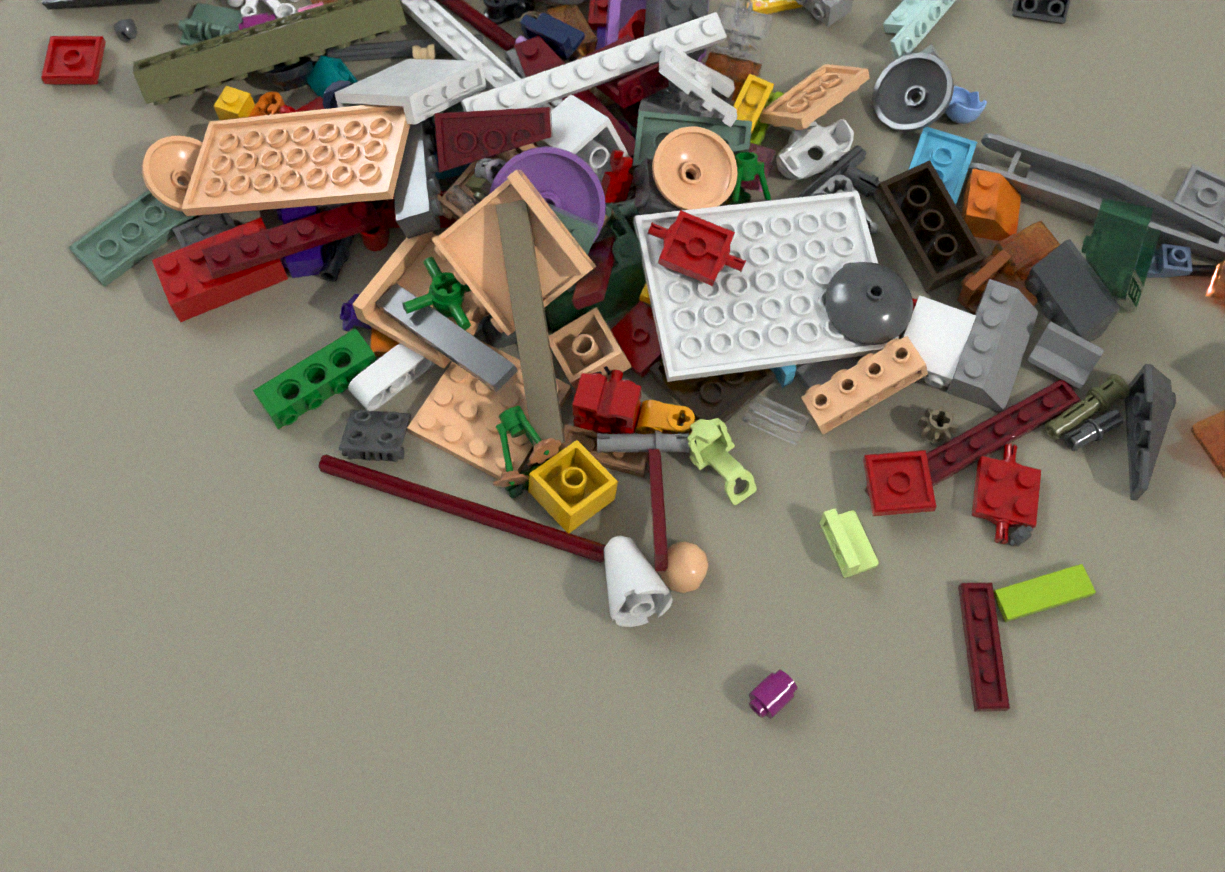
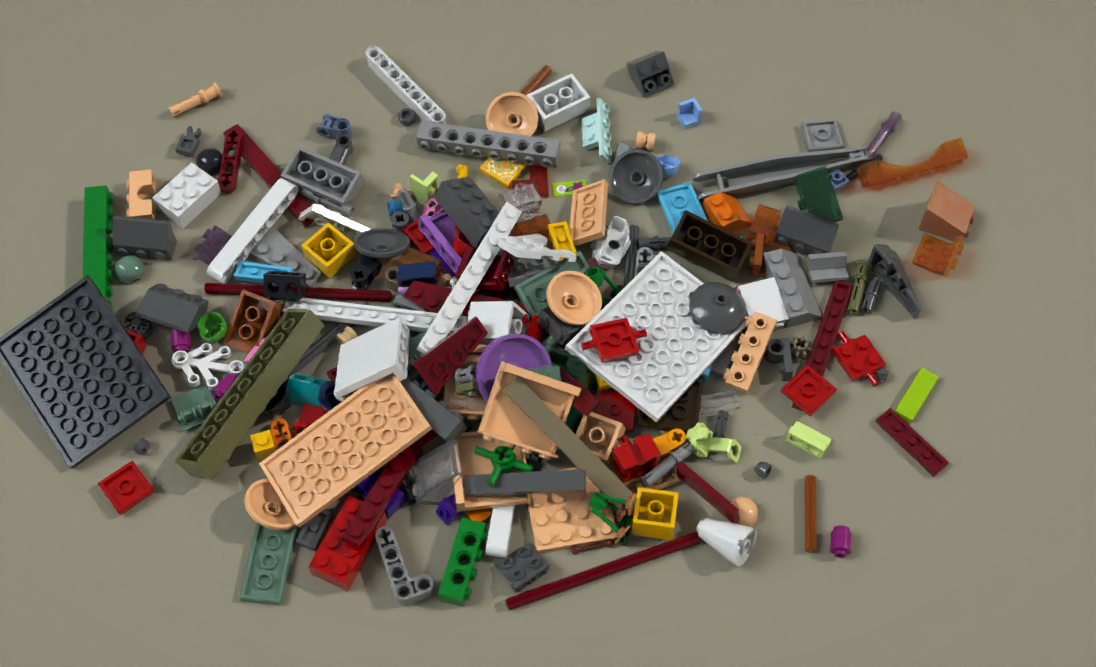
camera: 40 degrees left, 5 degrees down
(256, 300) = (397, 565): none -> light grey beam
(365, 258) = (436, 473): none -> clear slope
(454, 462) = (575, 549): none -> copper hinge
(754, 446) = (721, 424): none -> dark grey axle
(756, 536) = (763, 469): none -> dark grey hinge
(767, 632) = (810, 514): none -> dark orange axle
(793, 31) = (538, 176): none -> clear red tile
(818, 57) = (567, 188): none -> sticker
(903, 421) = (782, 358): none -> dark grey plate
(964, 62) = (641, 139): none -> light nougat wheel
(1050, 63) = (689, 113): none -> light blue panel

